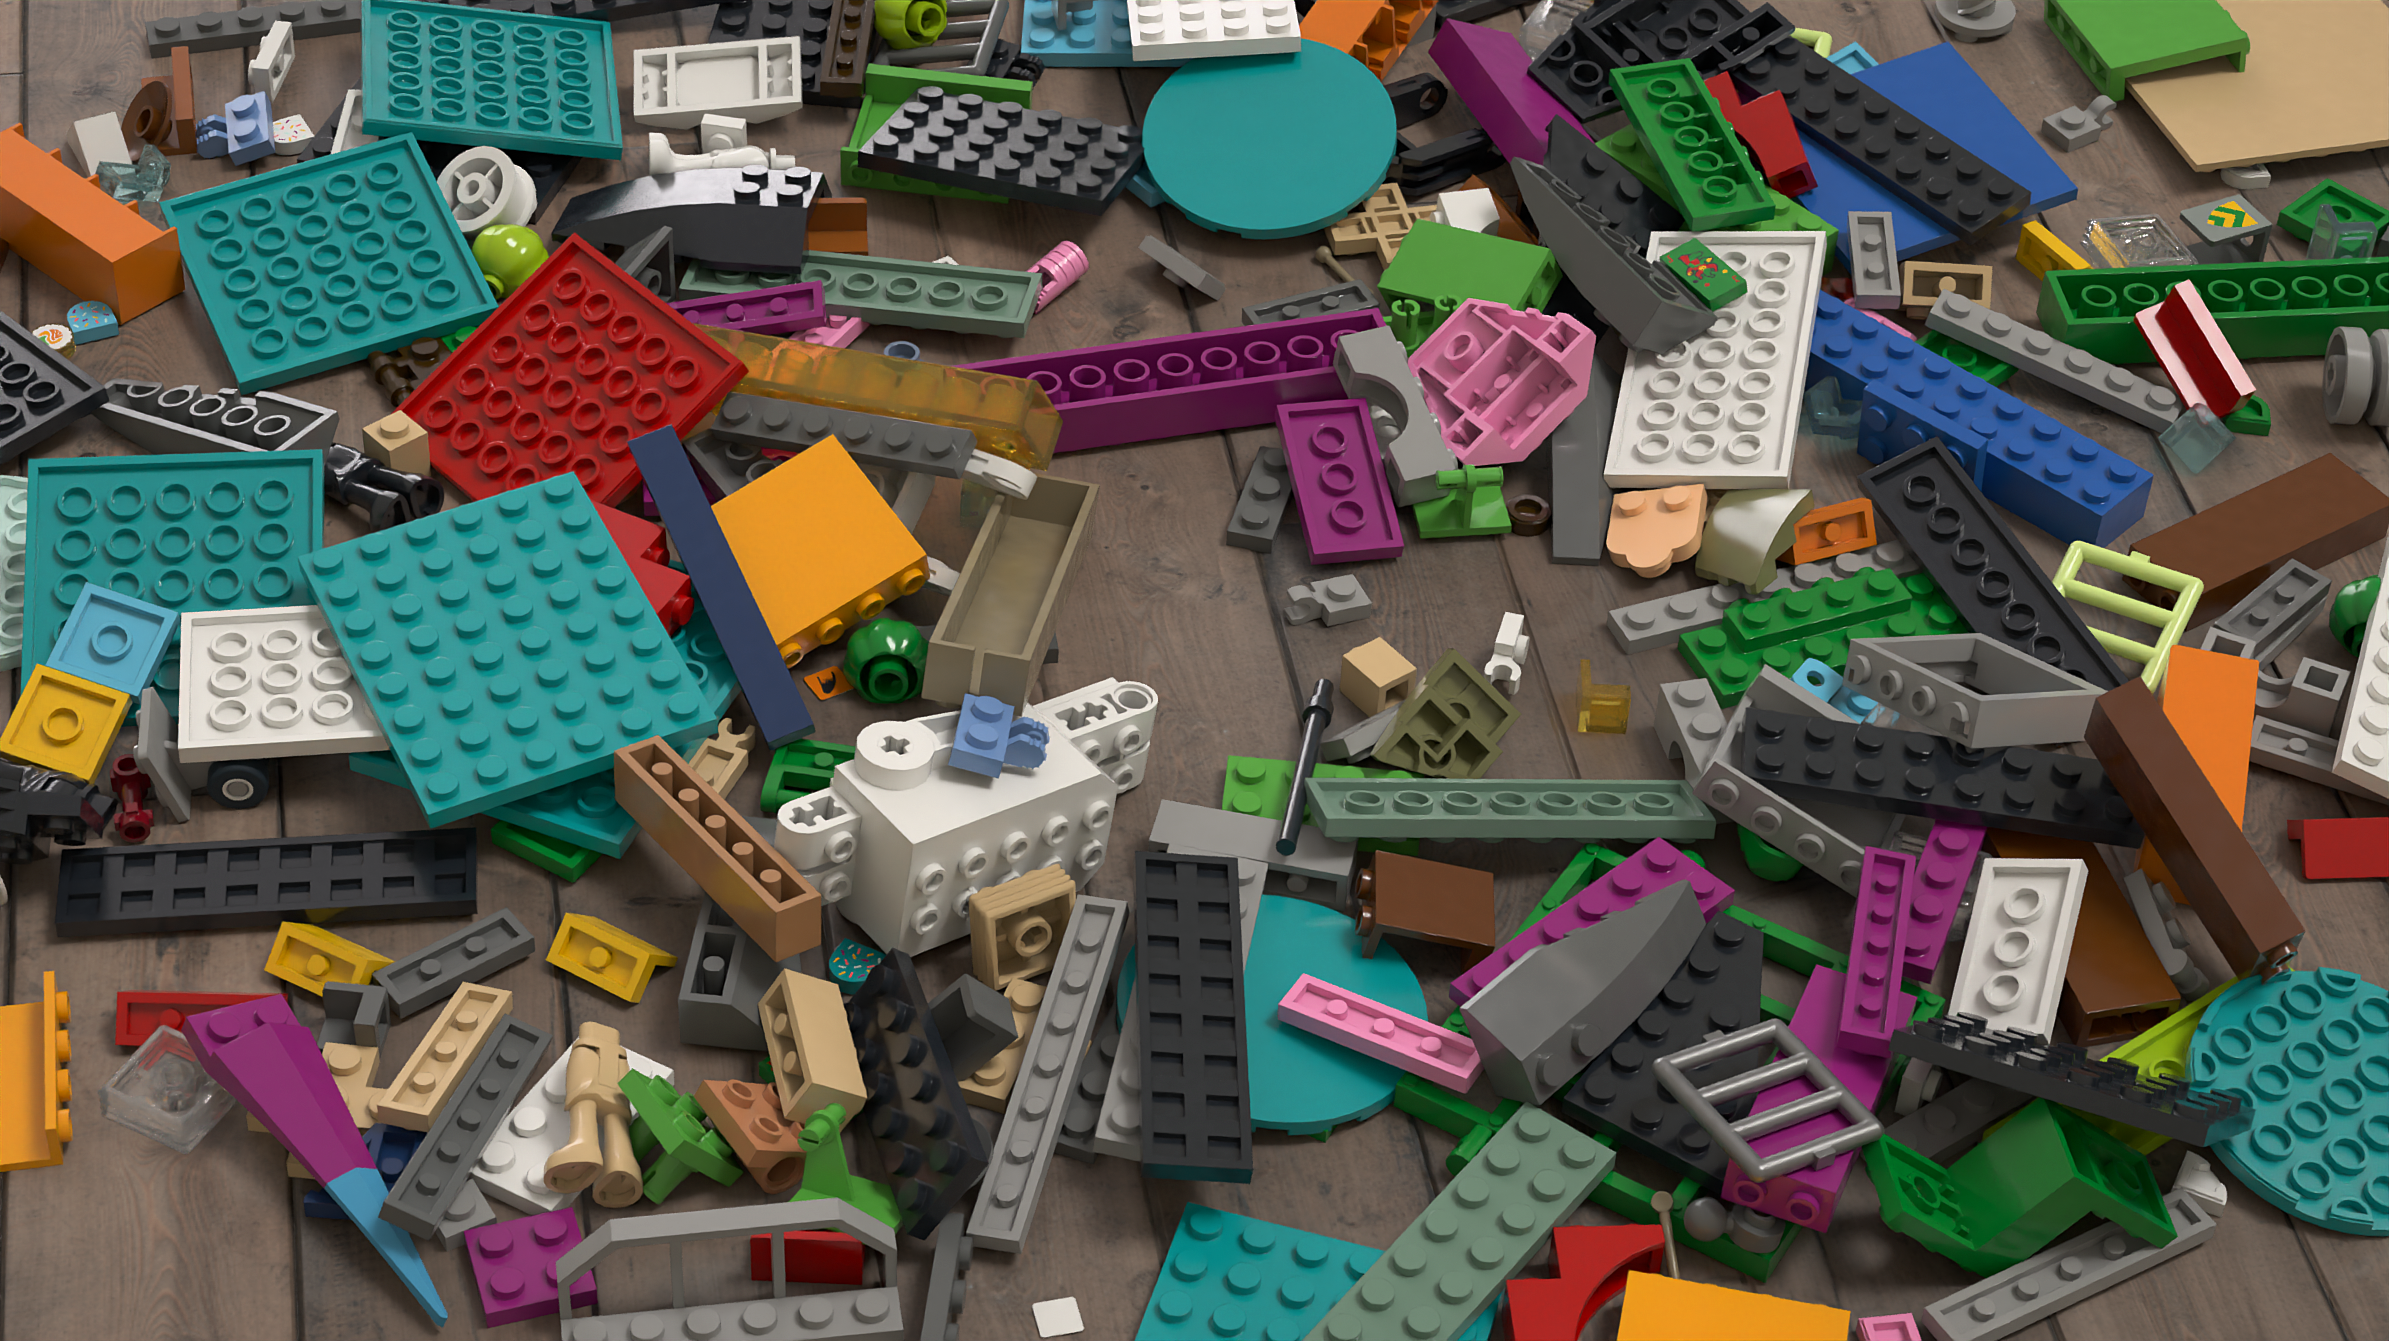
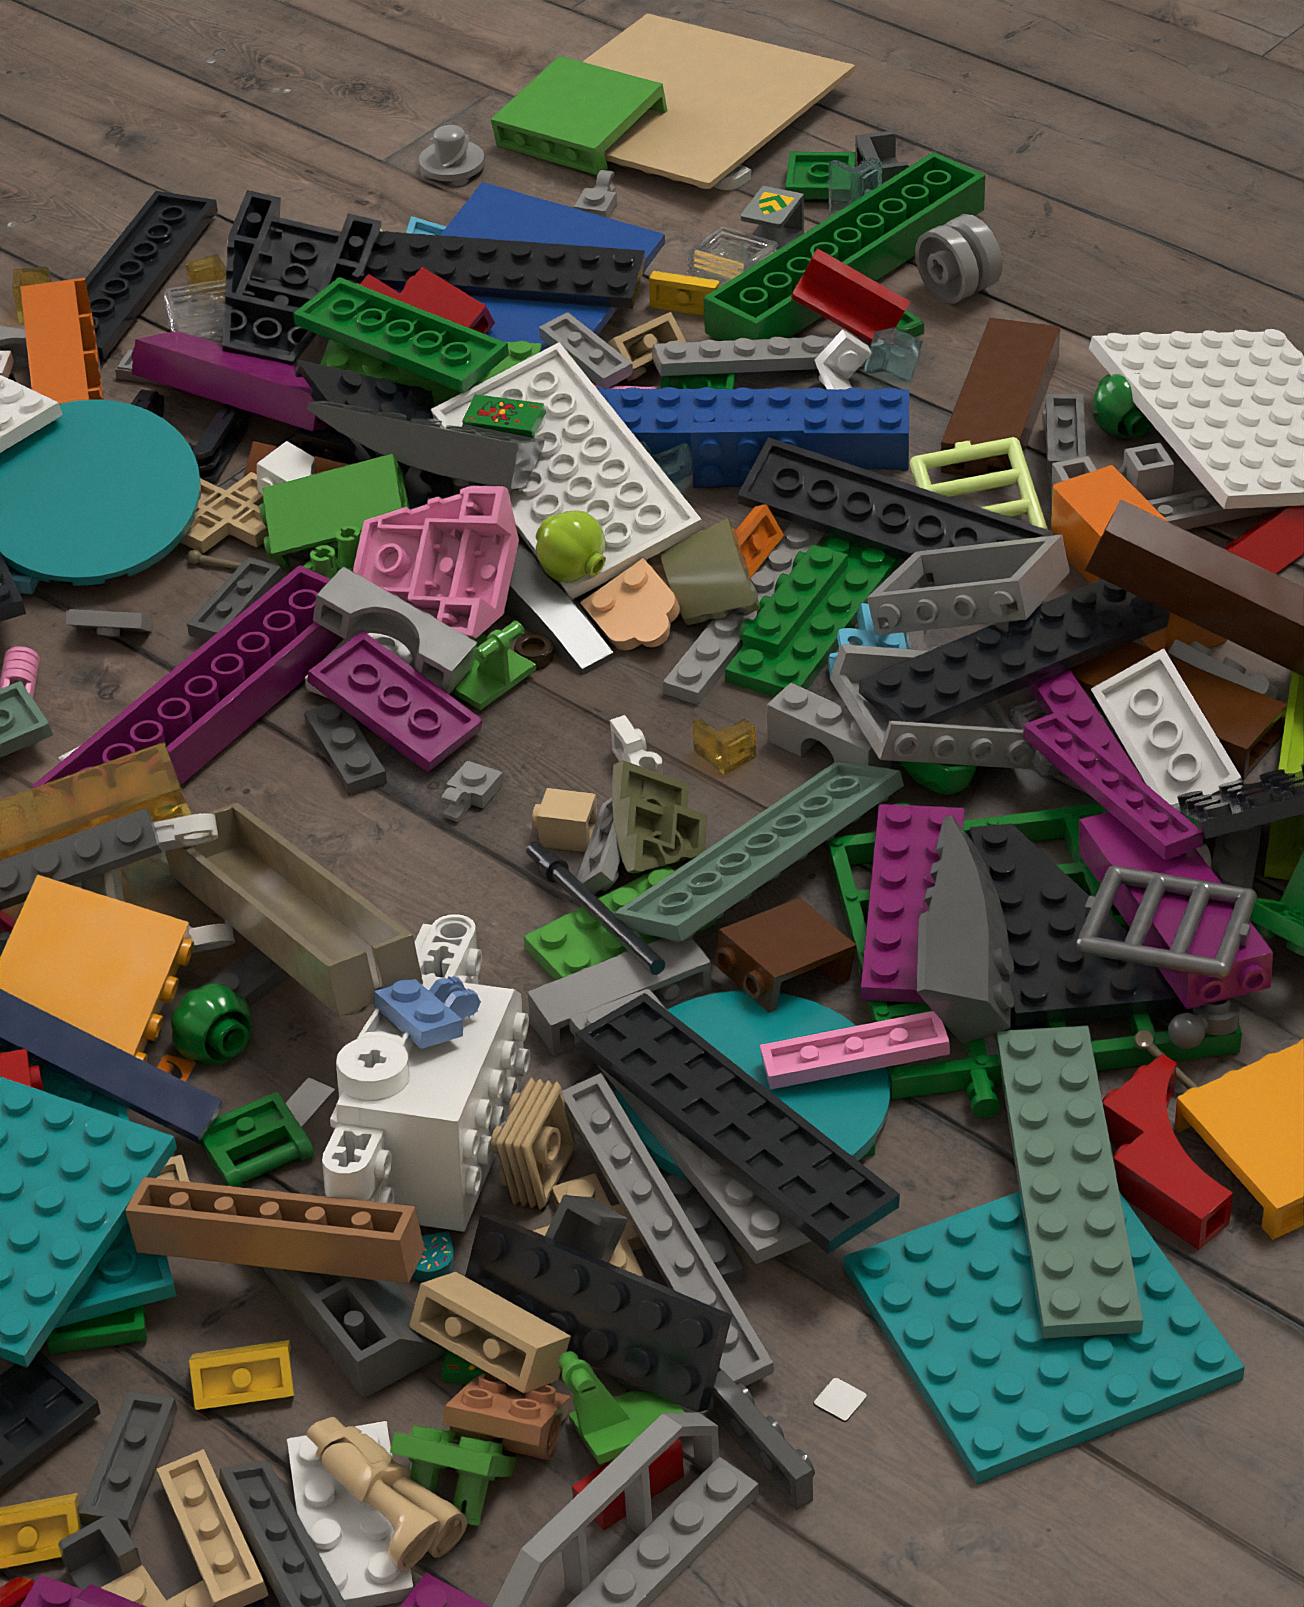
camera: 35 degrees left, 0 degrees up
(1636, 431) = (570, 546): none -> lime plant
(2126, 414) = (841, 360): none -> white bracket

